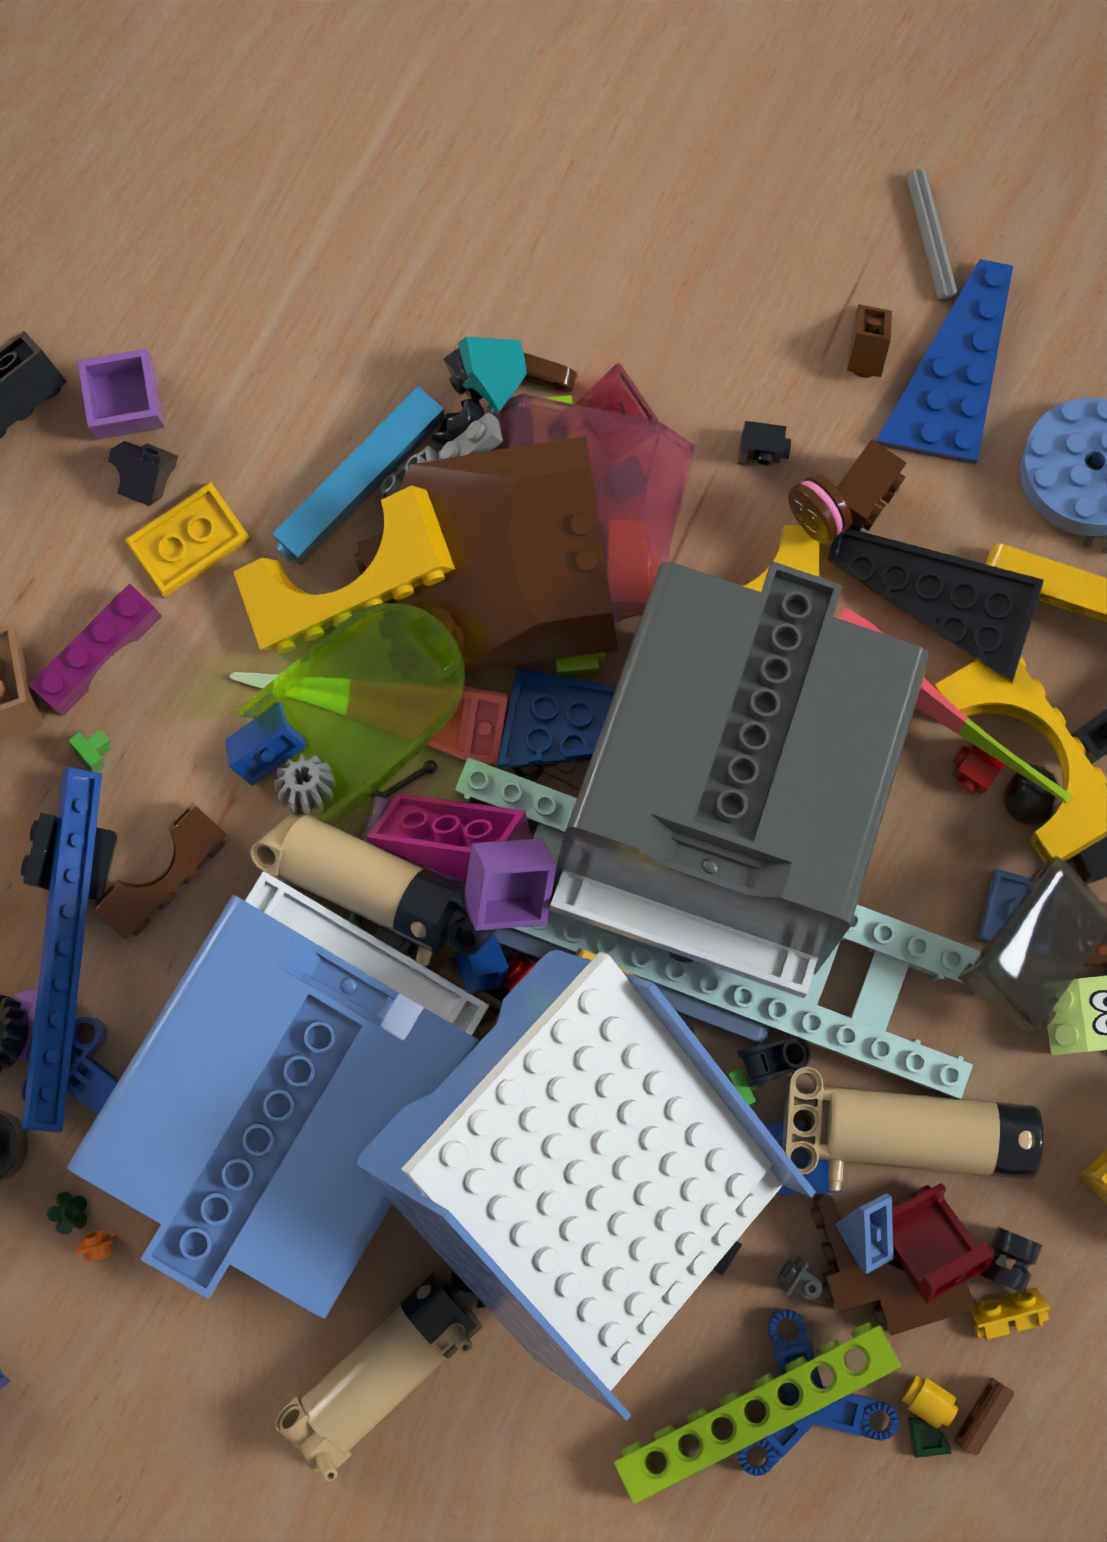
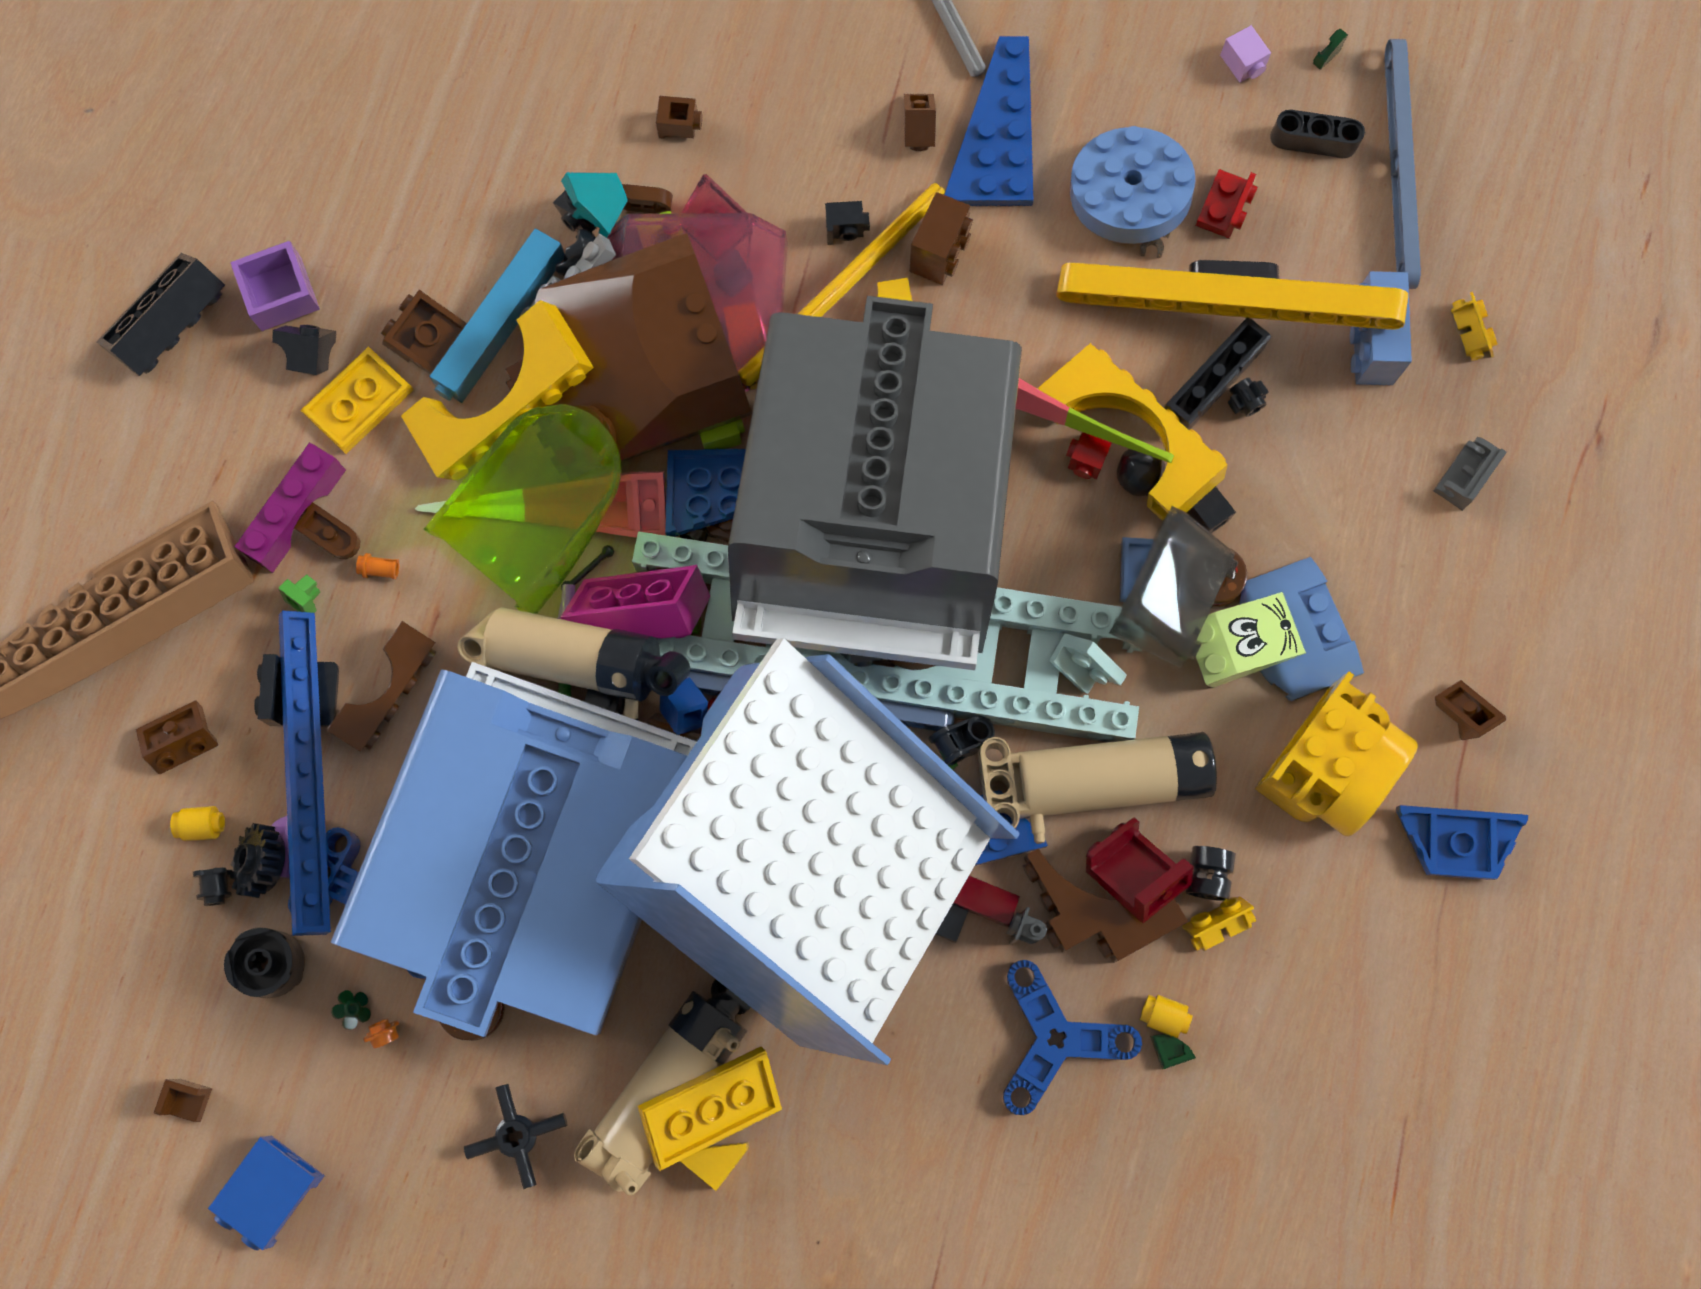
camera: 10 degrees left, 5 degrees down
(132, 685) = (328, 532): none -> reddish brown plate
(177, 734) = (376, 566): none -> orange pin
(209, 1395) = (511, 1148): none -> black bar
(263, 745) = (455, 560): blue panel -> none
(274, 479) = (422, 331): none -> reddish brown plate
(304, 784) = (497, 584): light grey gear -> none
(419, 1455) = (716, 1162): none -> yellow slope
(427, 1402) = (709, 1108): none -> yellow tile
(509, 884) = (692, 623): medium lavender piece -> none
(600, 274) = (677, 117): none -> reddish brown brick
(644, 1482) = (911, 1126): lime brick -> none
(752, 514) = (855, 270): none -> yellow axle
(769, 1241) = (987, 901): none -> dark red slope
(819, 508) = (903, 258): reddish brown head -> none
(869, 1233) = (1078, 871): medium blue slope -> none
(924, 1003) = (1085, 663): none -> light aqua bracket
(960, 599) = (1045, 315): black wing -> none
(984, 1416) = (1218, 1019): reddish brown slope -> none

